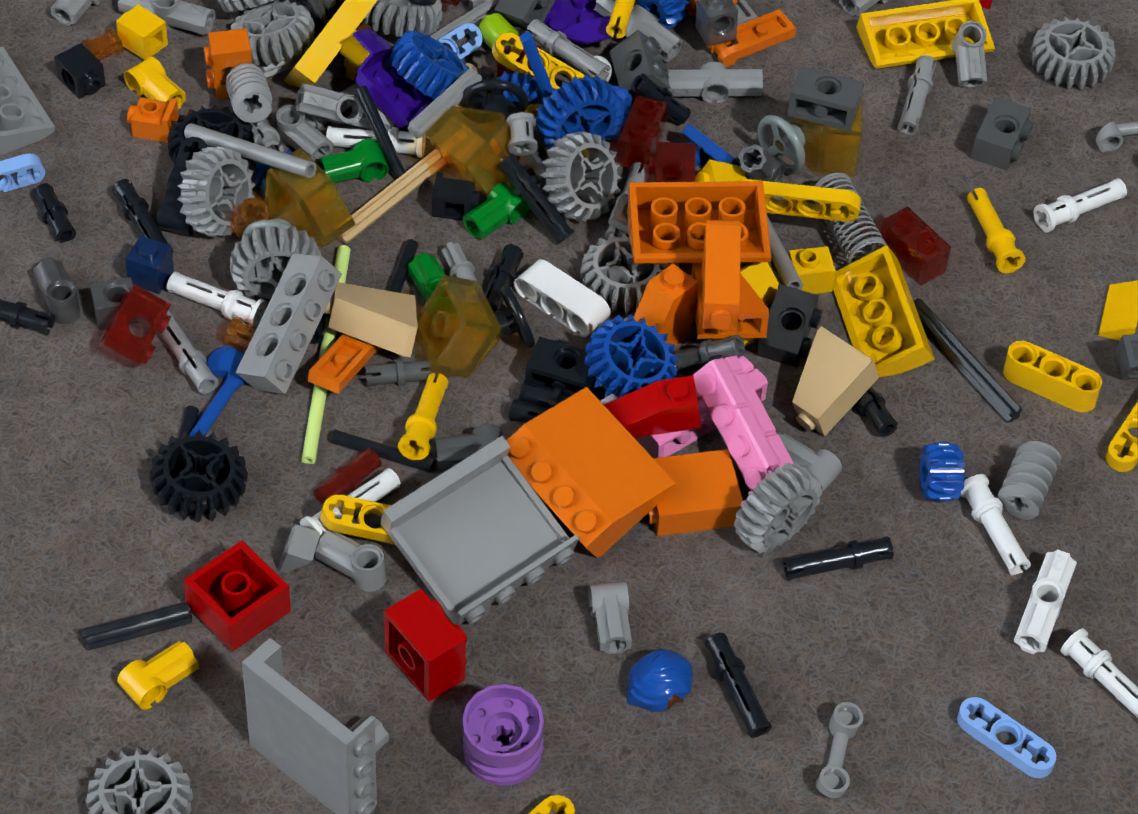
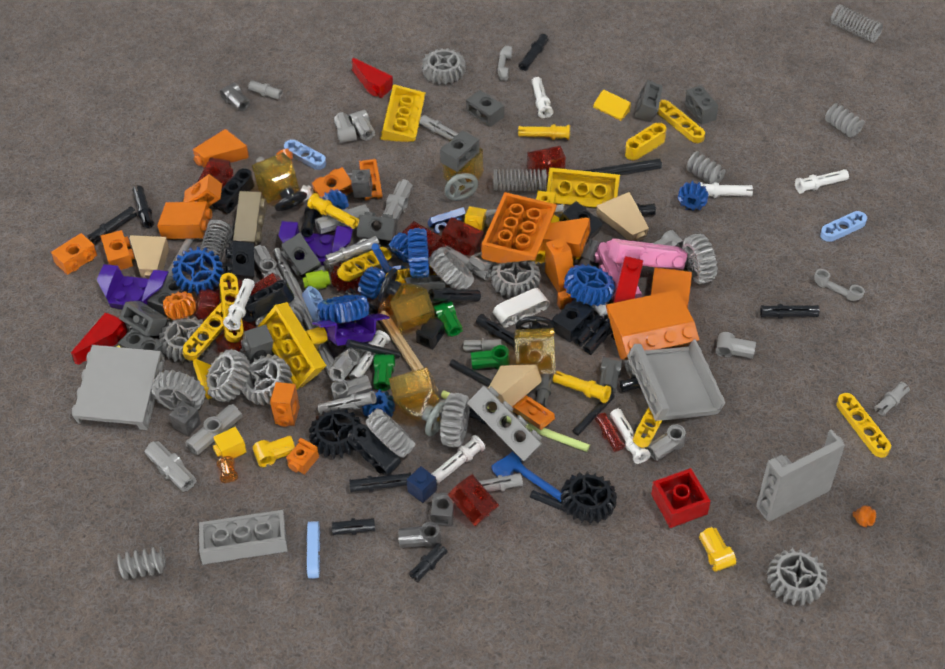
camera: 65 degrees left, 0 degrees up
(80, 71) = (244, 484): black brick -> none
(136, 626) = (678, 554): black axle -> none
(236, 331) = (492, 452): clear orange bush -> none
(248, 215) = (416, 422): clear orange bush -> none
(249, 92) = (317, 399): light grey piece -> none
(253, 151) = (375, 404): light grey piece -> none
(299, 548) = (653, 465): light grey slope -> none
(425, 644) = (741, 422): red brick -> none
(450, 97) = (379, 308): light grey axle -> none
(508, 716) = (804, 405): medium lavender wheel -> none
(522, 134) = (421, 279): light grey bush -> none
(647, 88) = (402, 224): black pin -> none
(659, 680) = (779, 339): blue hair -> none
(721, 275) = (570, 223): orange slope -> none
(760, 165) = (472, 199): flat silver piece -> none
(834, 203) = (511, 186): yellow beam -> none
(852, 555) = (726, 246): black pin -> none
(970, 56) = (425, 98): light grey piece -> none
(1041, 615) = (775, 187): white piece -> none

